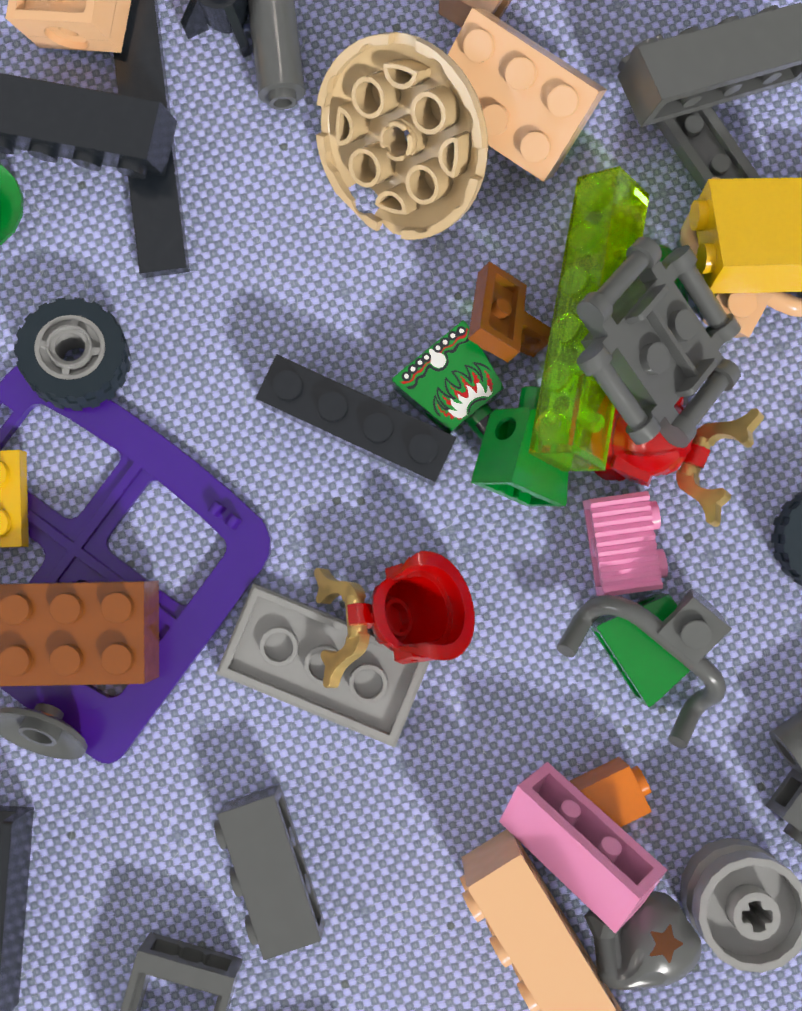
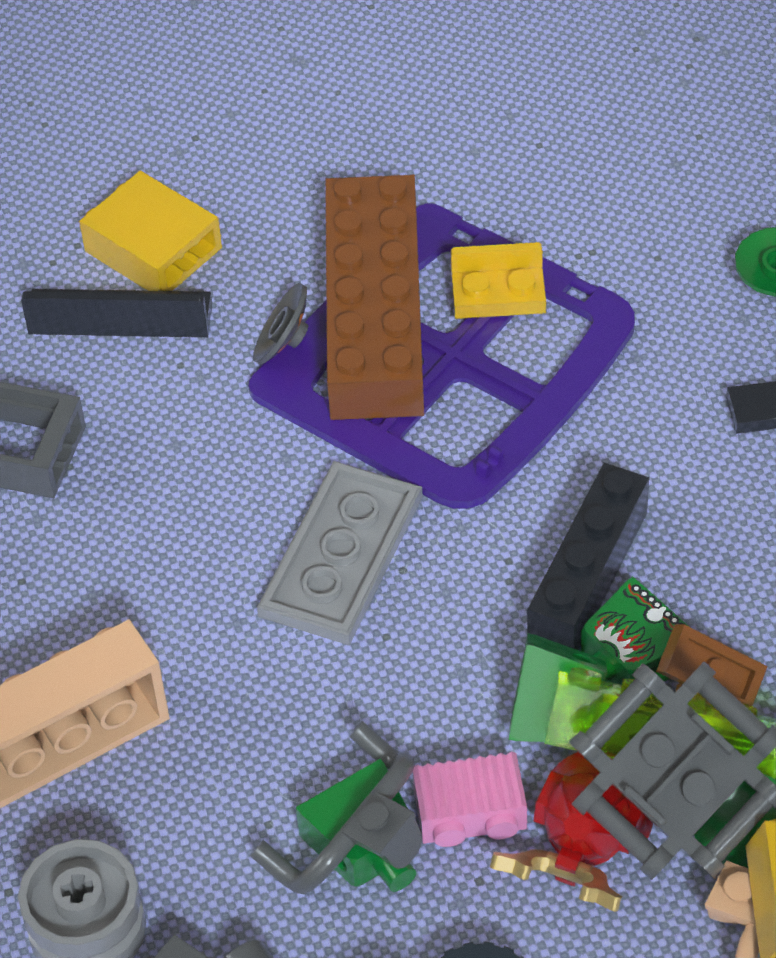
camera: 85 degrees right, 35 degrees down
(66, 326) = (640, 337): black wheel -> none
(270, 872) = (142, 507): dark grey brick -> none
(416, 612) = (393, 602): red helmet -> none
(582, 846) = (157, 736): bright pink brick -> none
(616, 790) = (201, 790): orange brick -> none
(649, 949) = (51, 800): dark grey piece -> none

